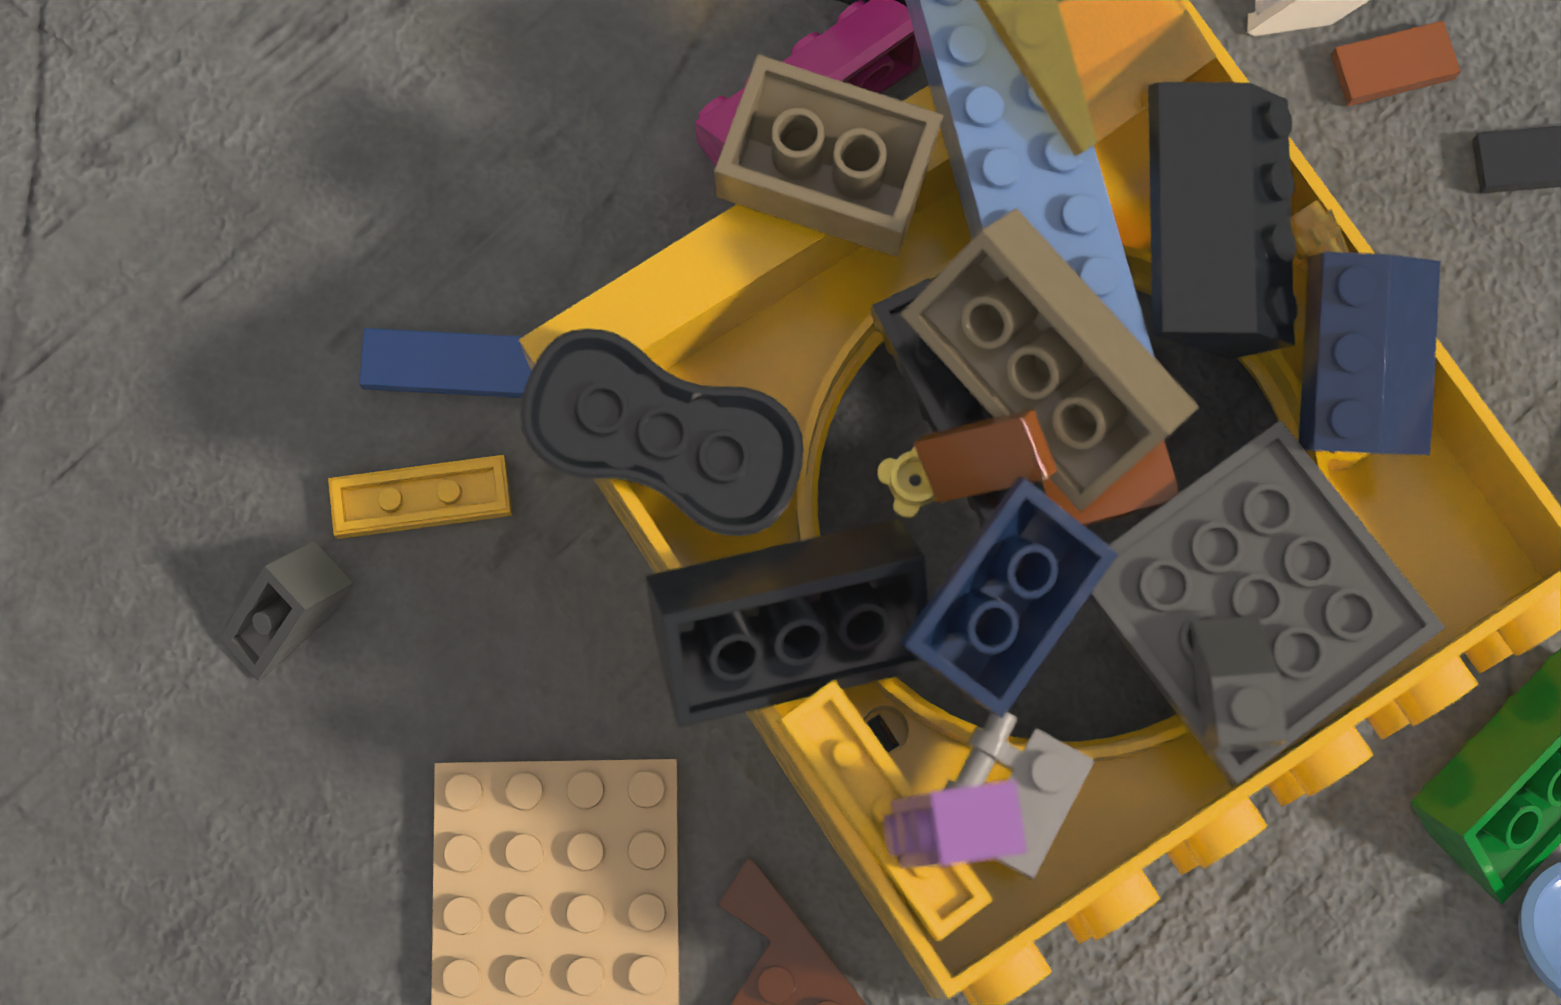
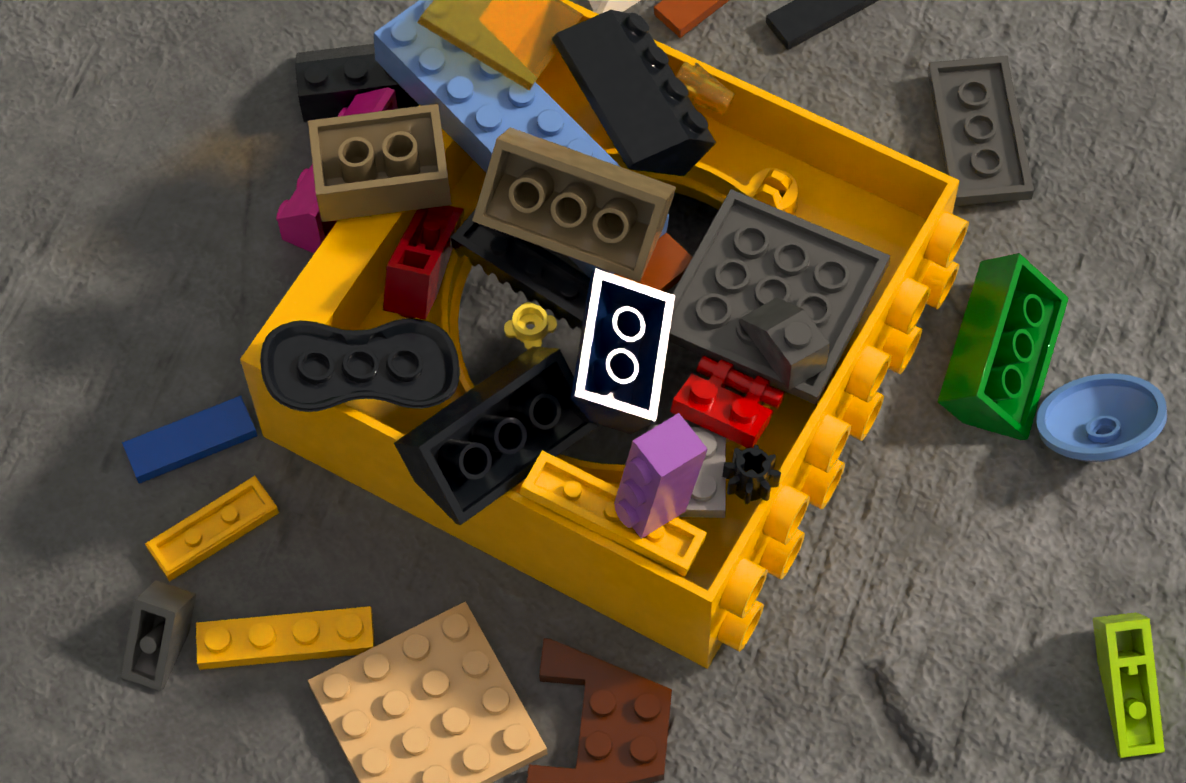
camera: 25 degrees left, 15 degrees down
(437, 689) = (284, 637): none -> yellow plate
(818, 318) = (420, 261): none -> dark red slope
(985, 456) = (564, 279): dark orange tile -> none
(1099, 835) = (751, 474): none -> black gear
(1102, 736) = (722, 410): none -> red plate
(1369, 353) = (761, 128): dark blue slope -> none

